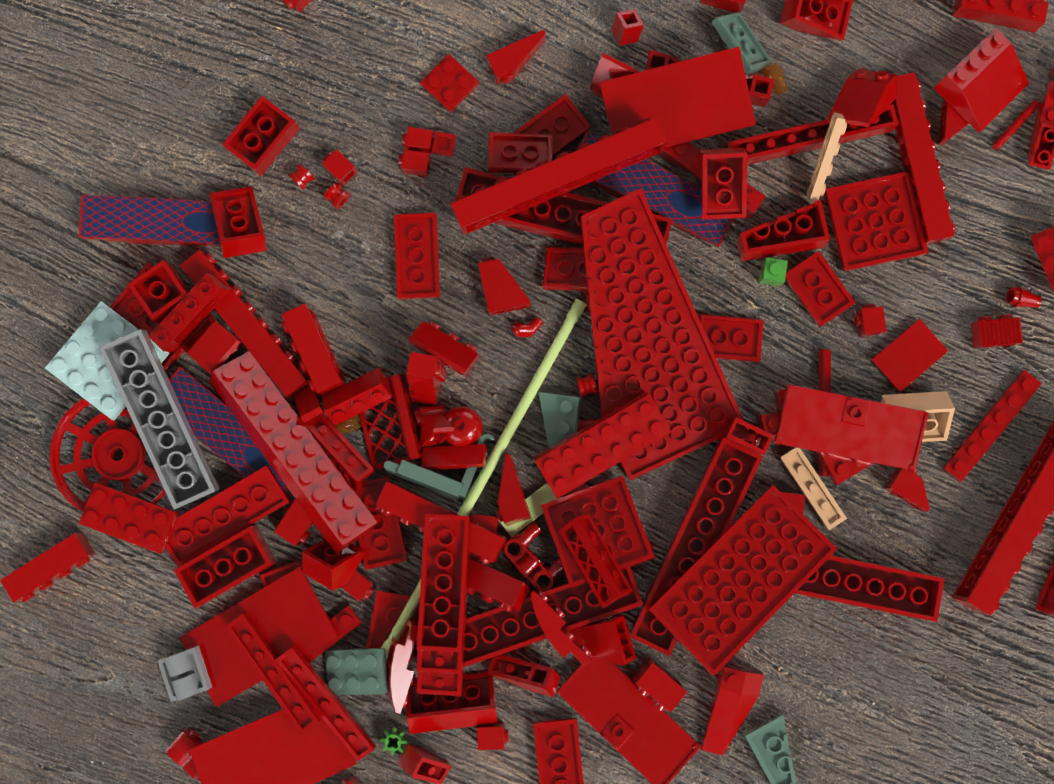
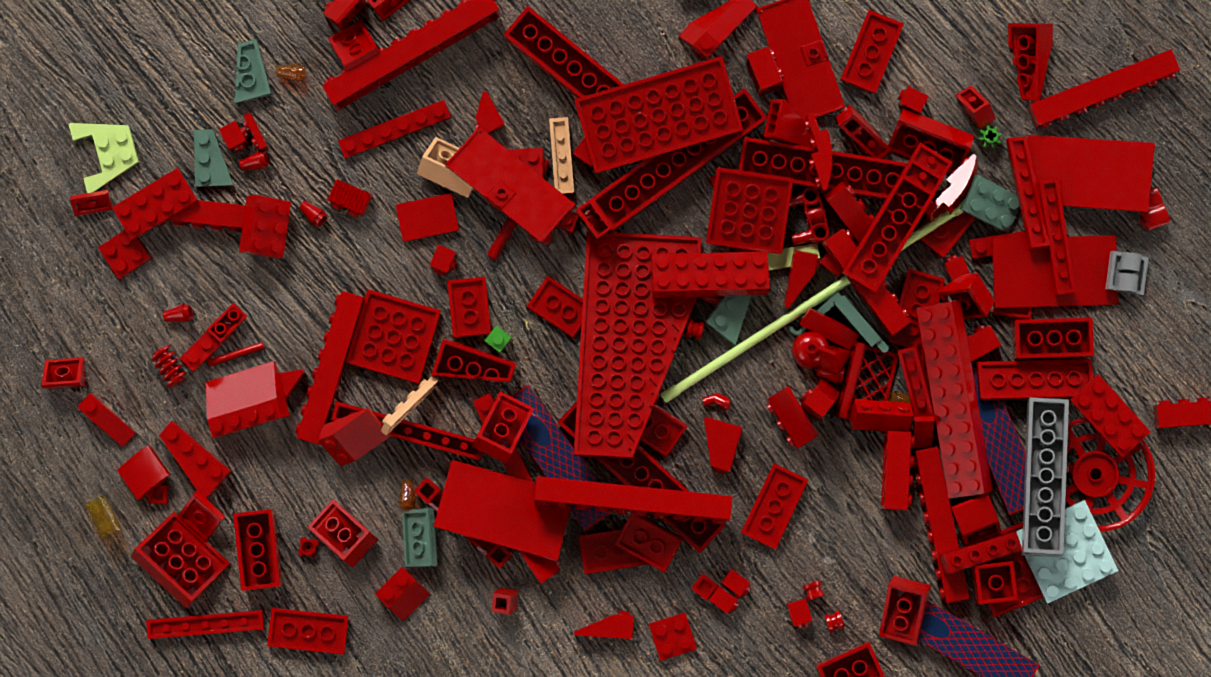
camera: 155 degrees left, 0 degrees up
(598, 557) = (759, 188): red fence -> none

